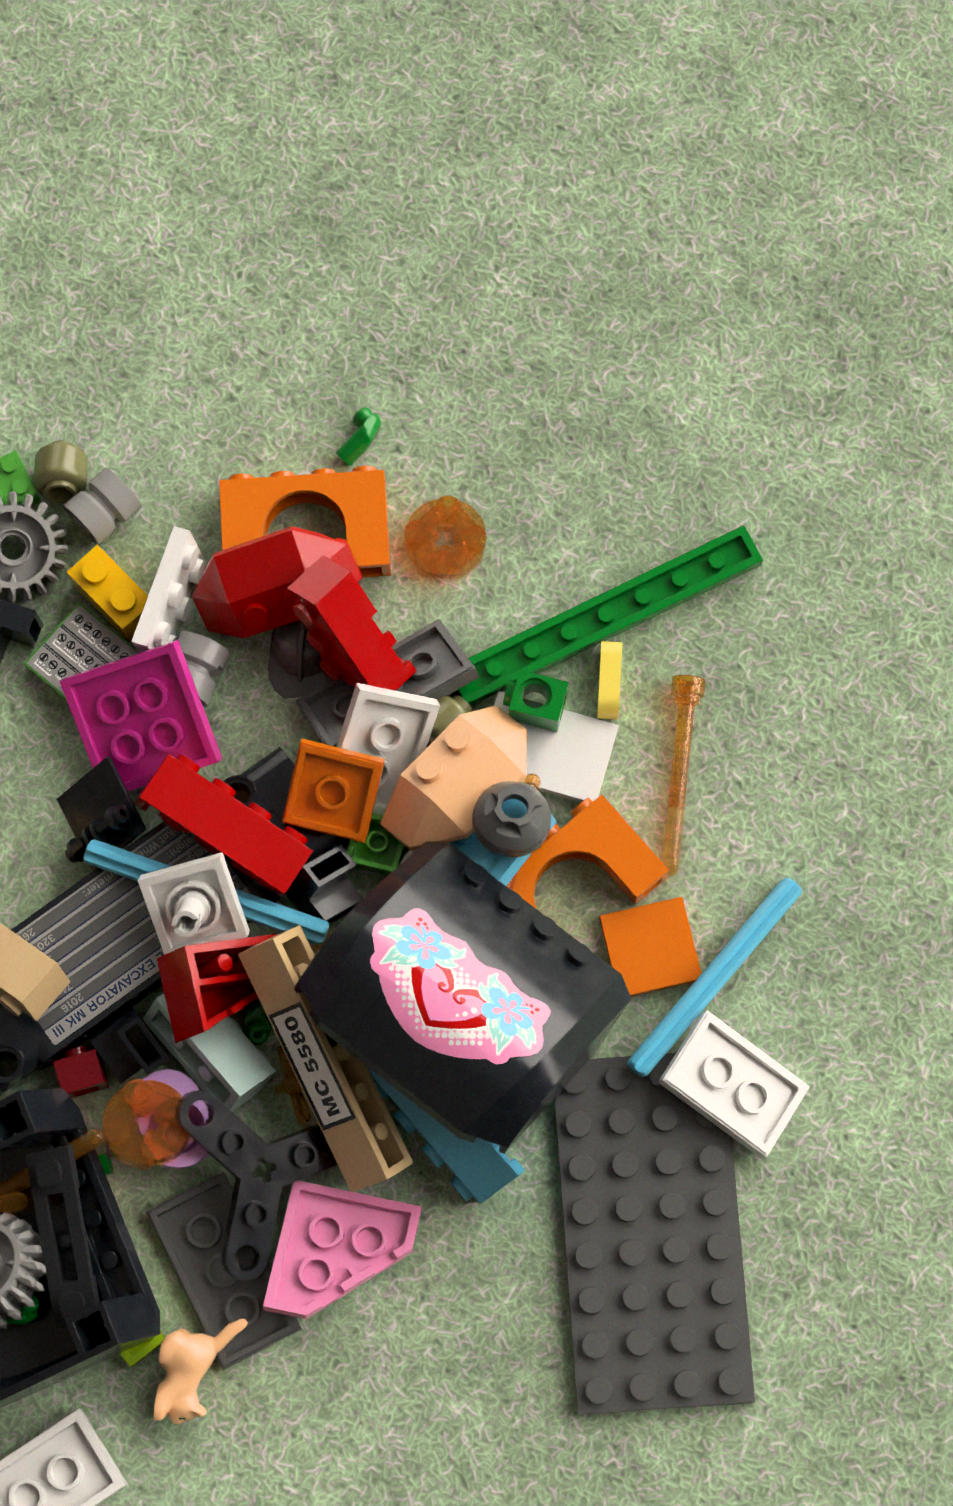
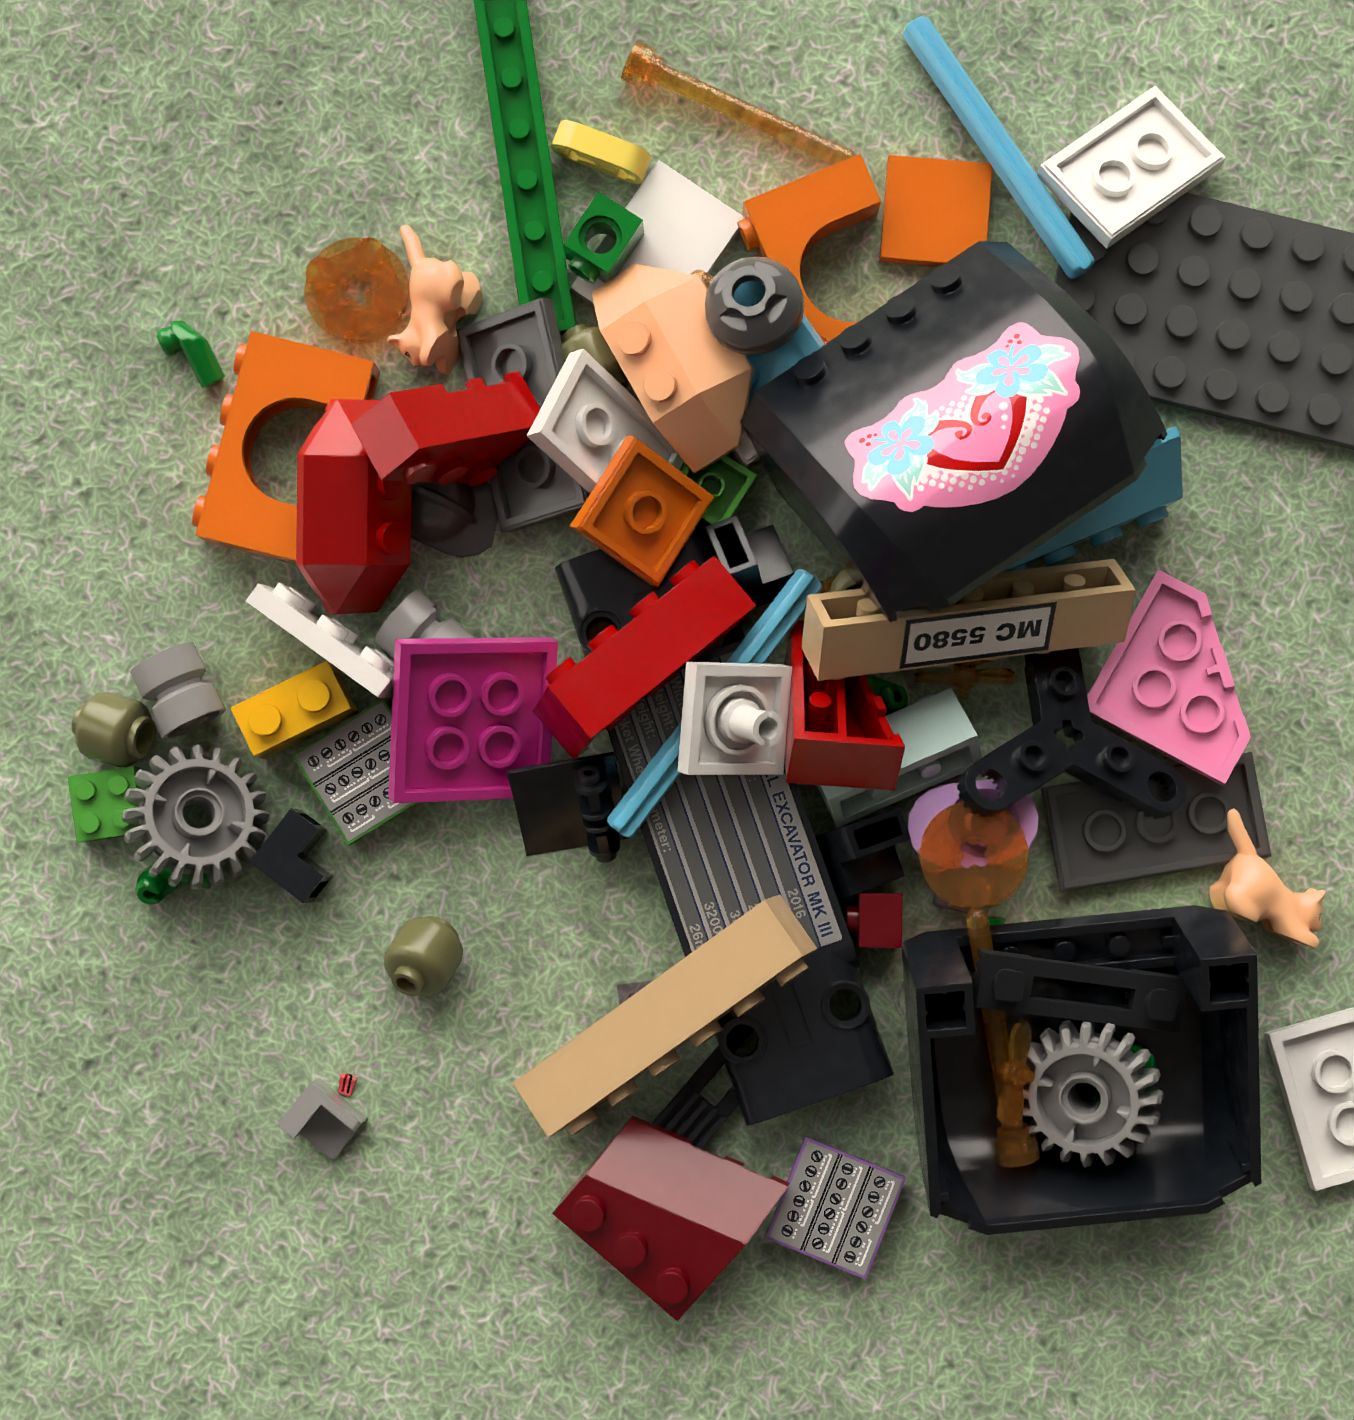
camera: 75 degrees left, 10 degrees up
(454, 597) = (438, 300): none -> light nougat animal

